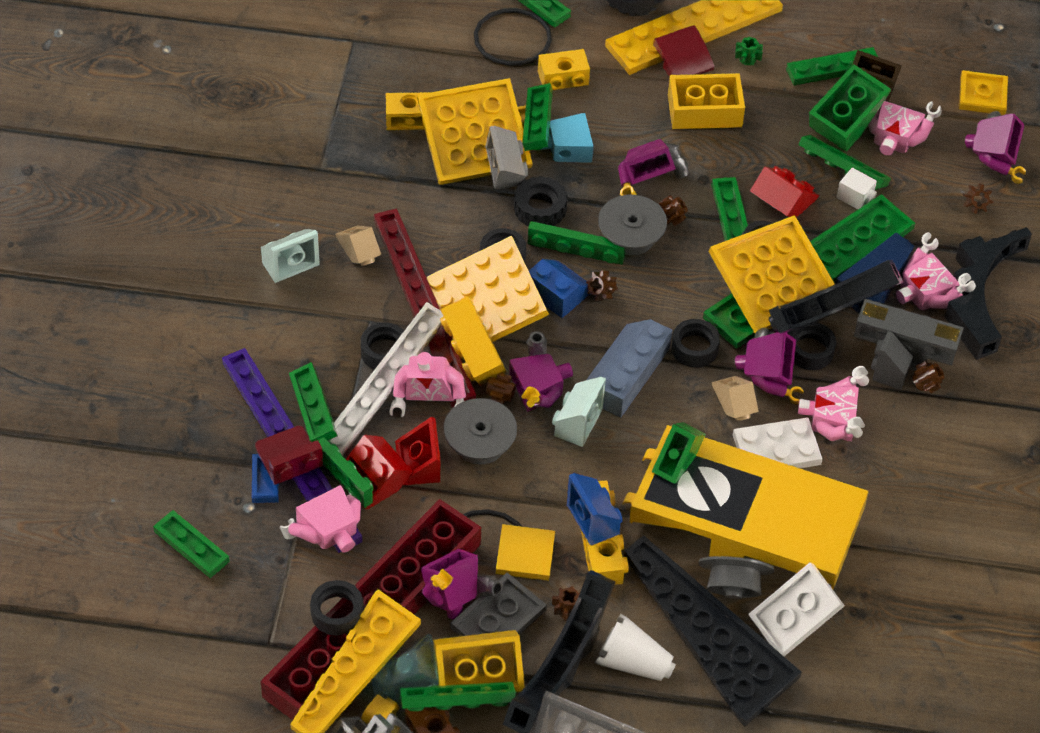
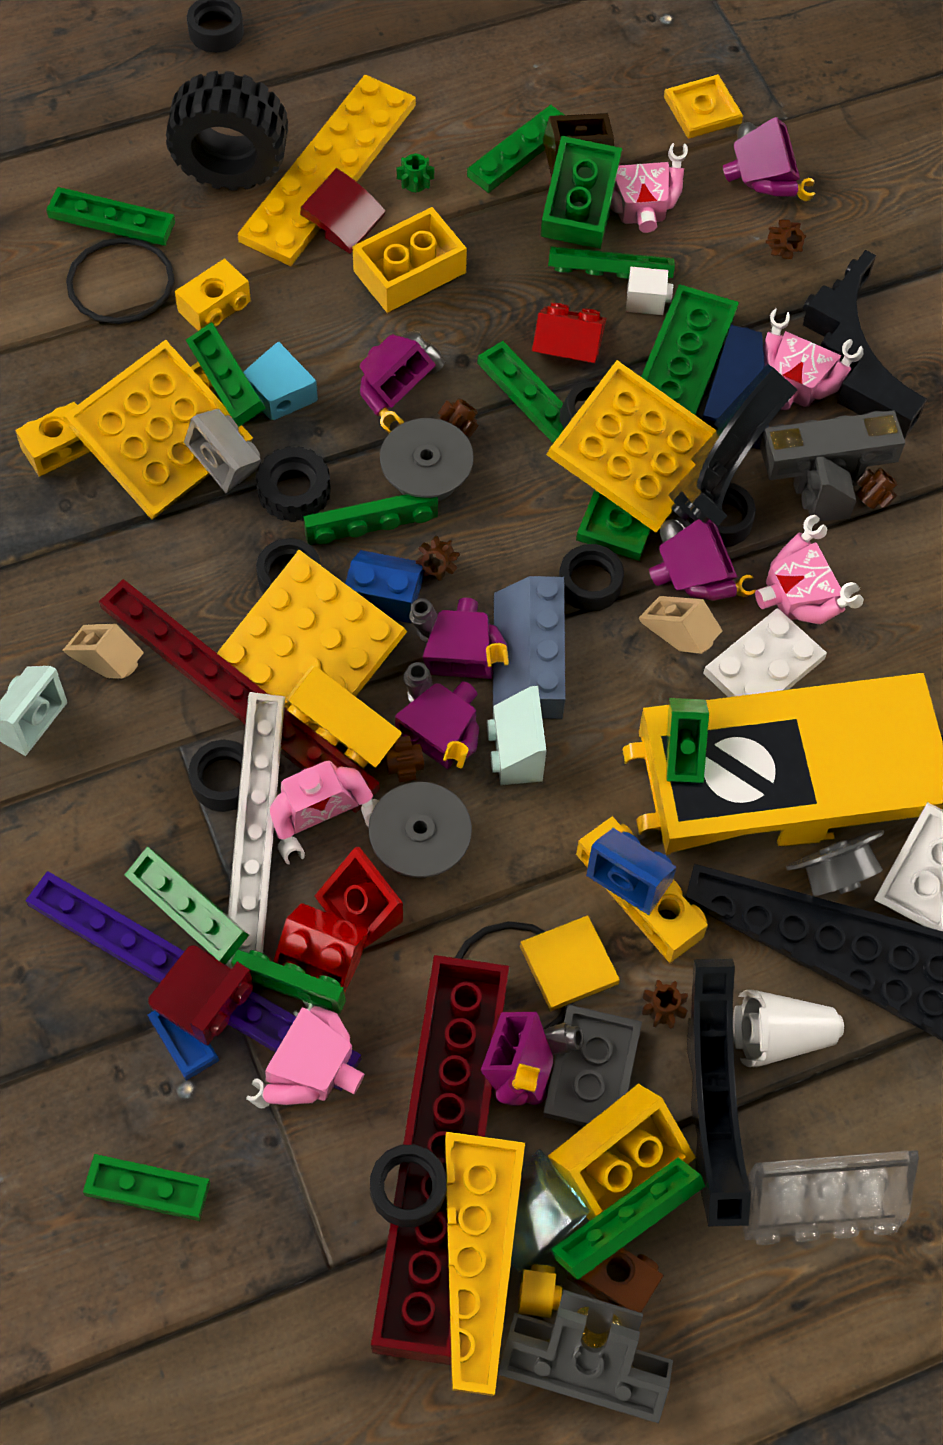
camera: 30 degrees left, 10 degrees up
(579, 337) = (459, 640): none -> magenta torso

